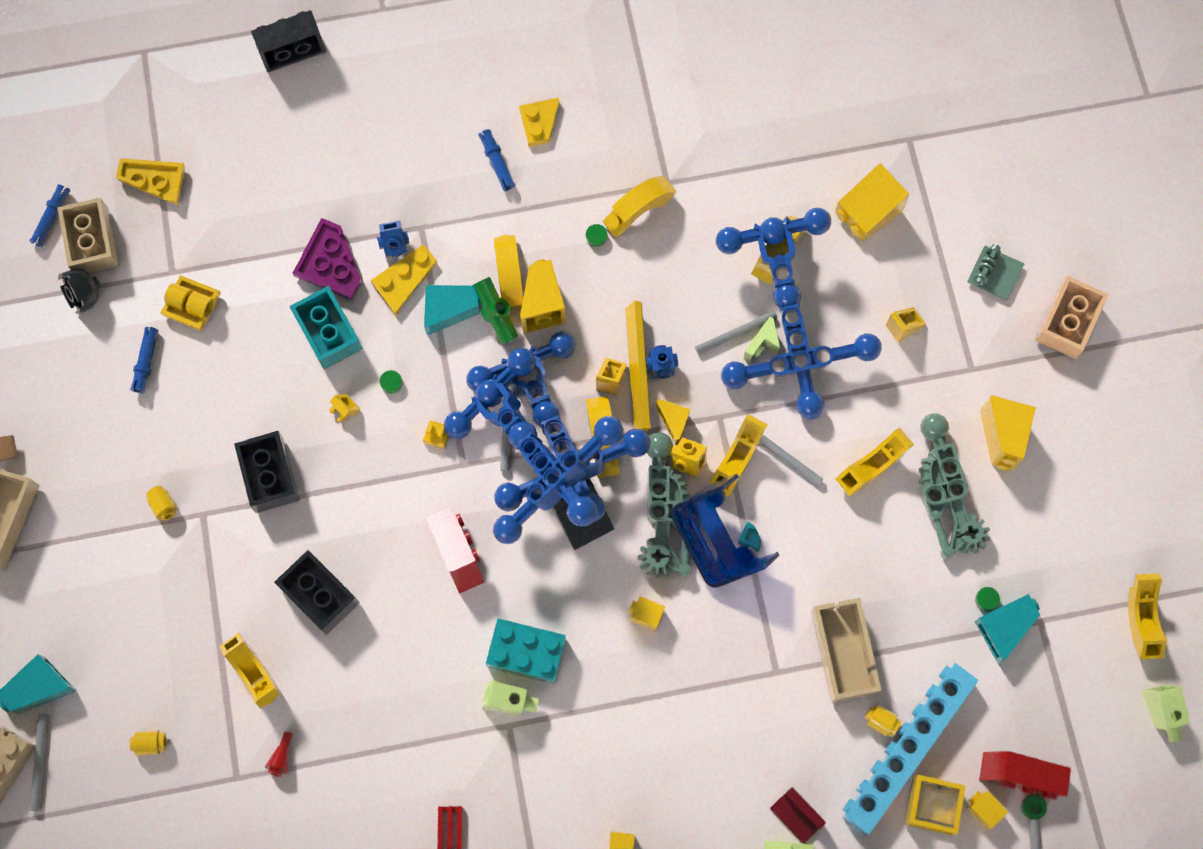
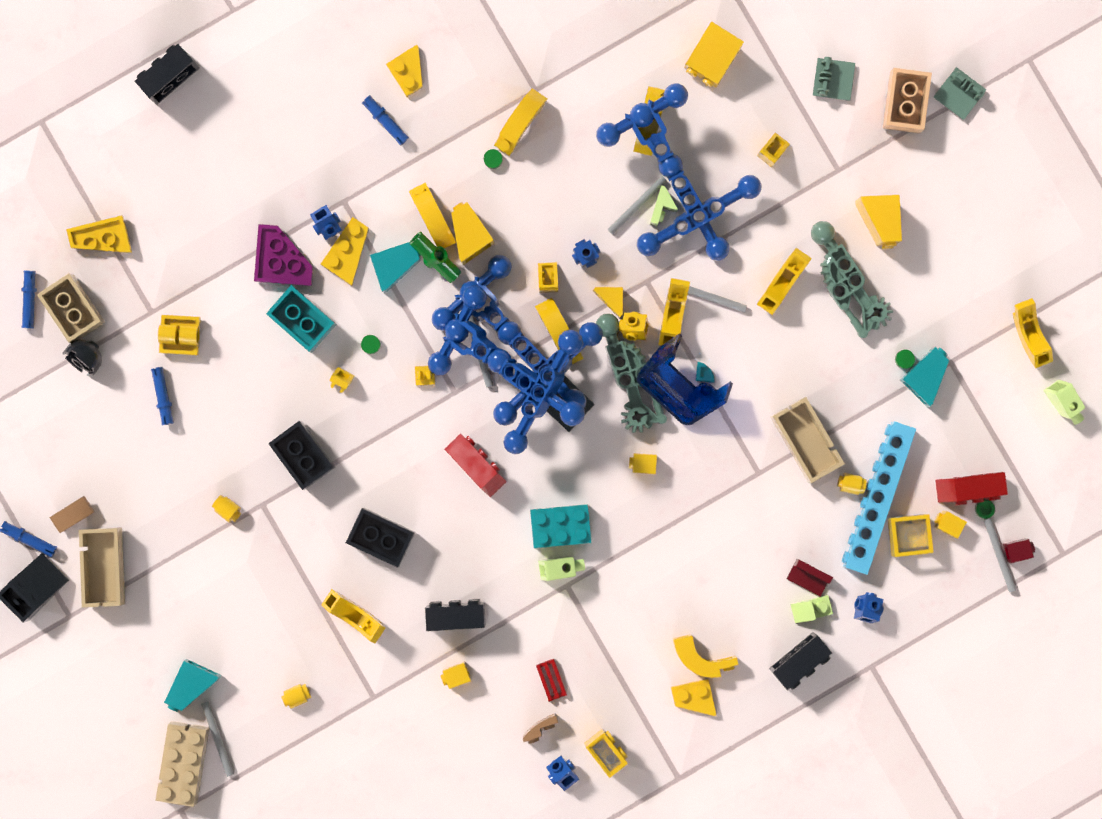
camera: 20 degrees left, 15 degrees up
(278, 761) = (401, 673): red cone -> none
(340, 784) = (455, 675): none -> yellow brick
(366, 710) = (455, 615): none -> black brick
(637, 366) = (567, 264): yellow tile -> none
(1132, 331) = (960, 93): none -> sand green hinge

